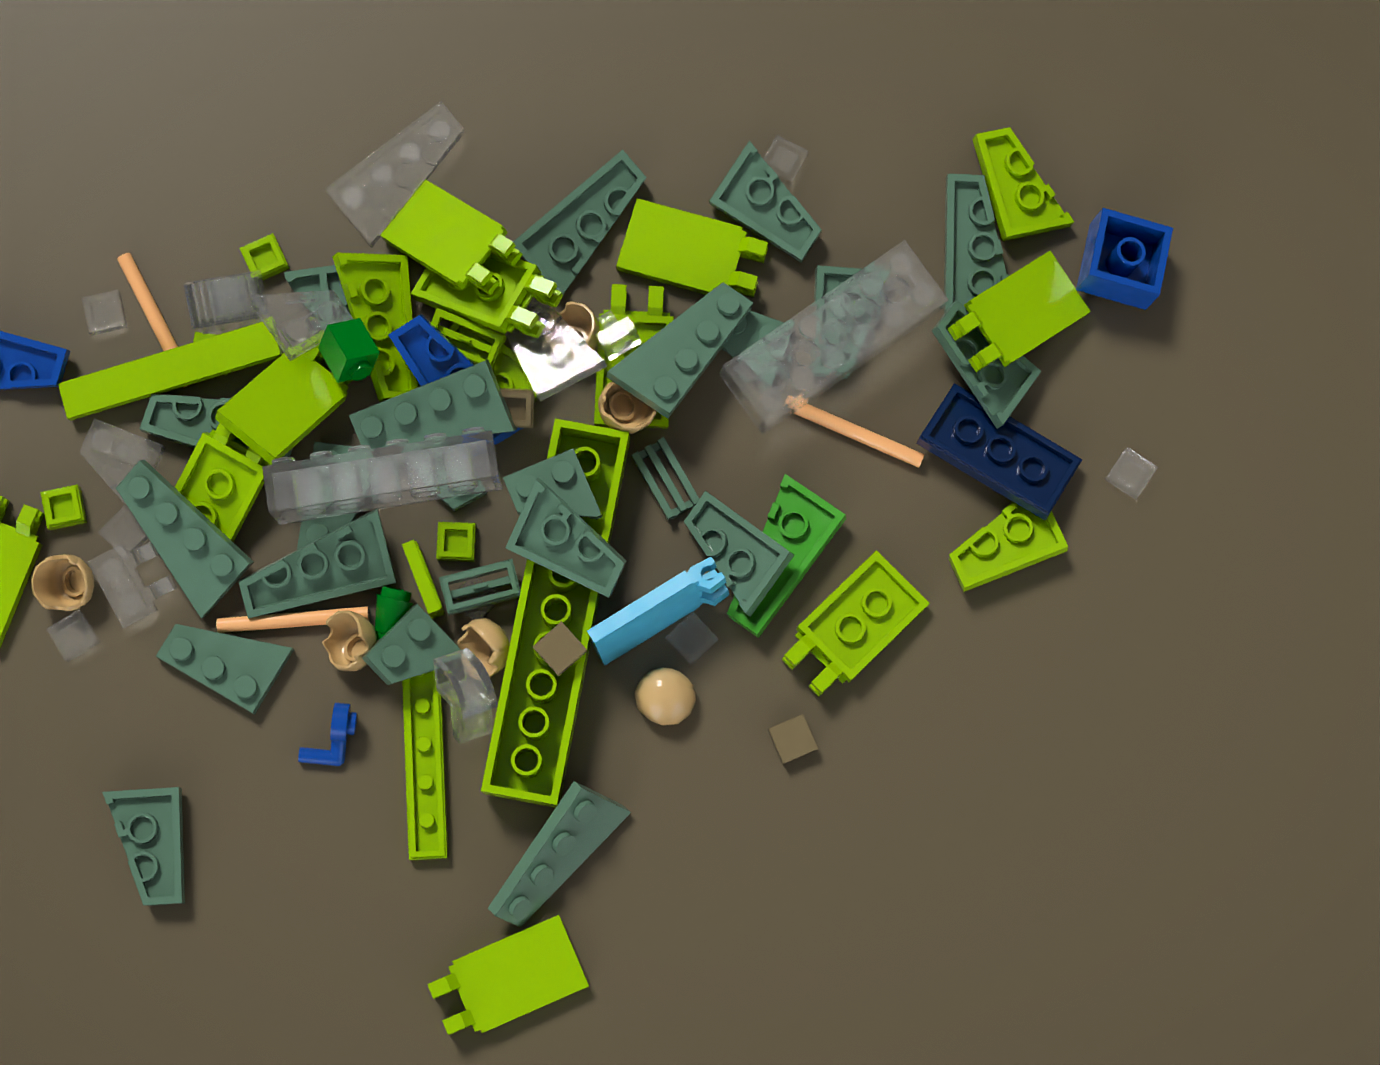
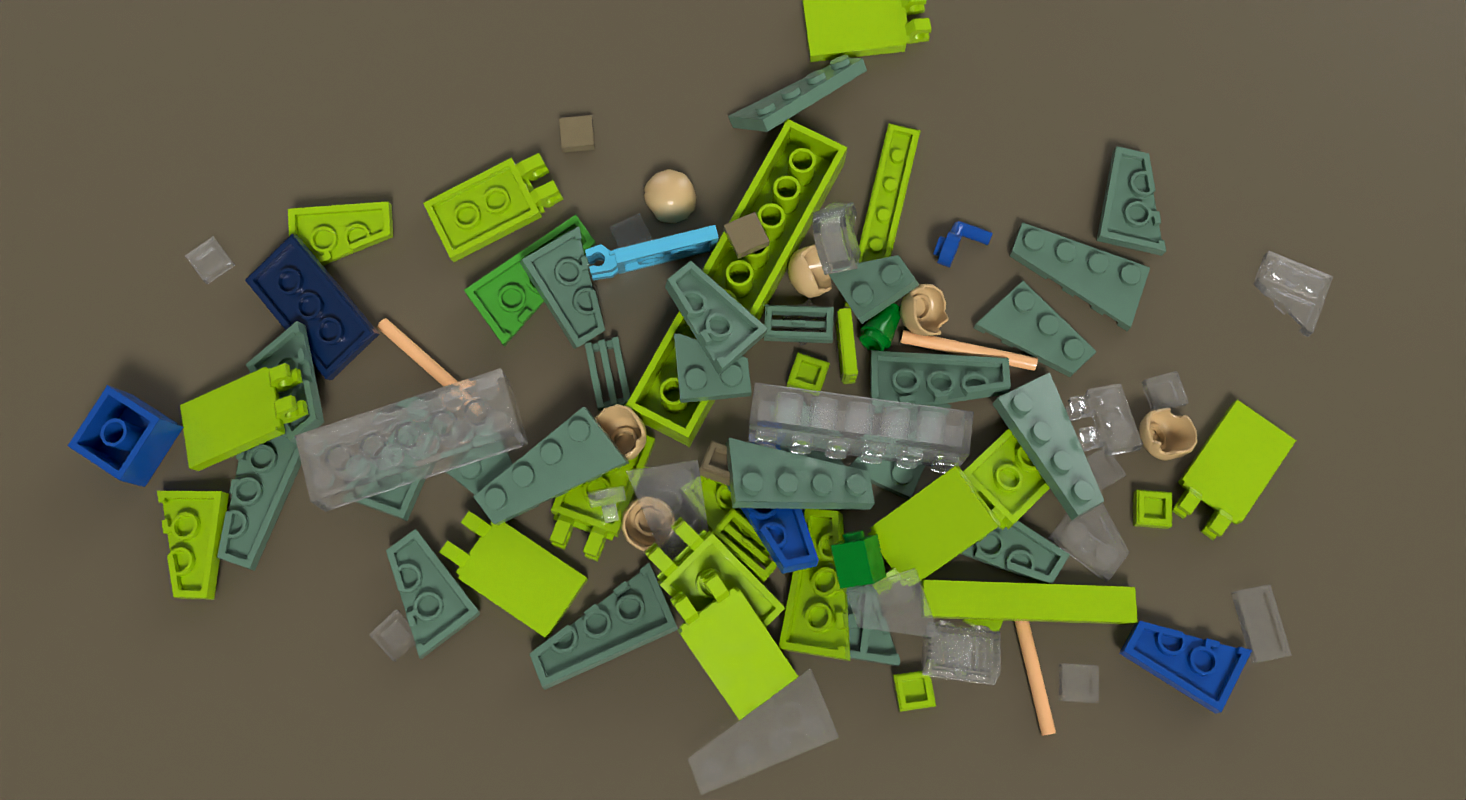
camera: 160 degrees left, 5 degrees down
(179, 745) = (1097, 277): none -> sand green wing

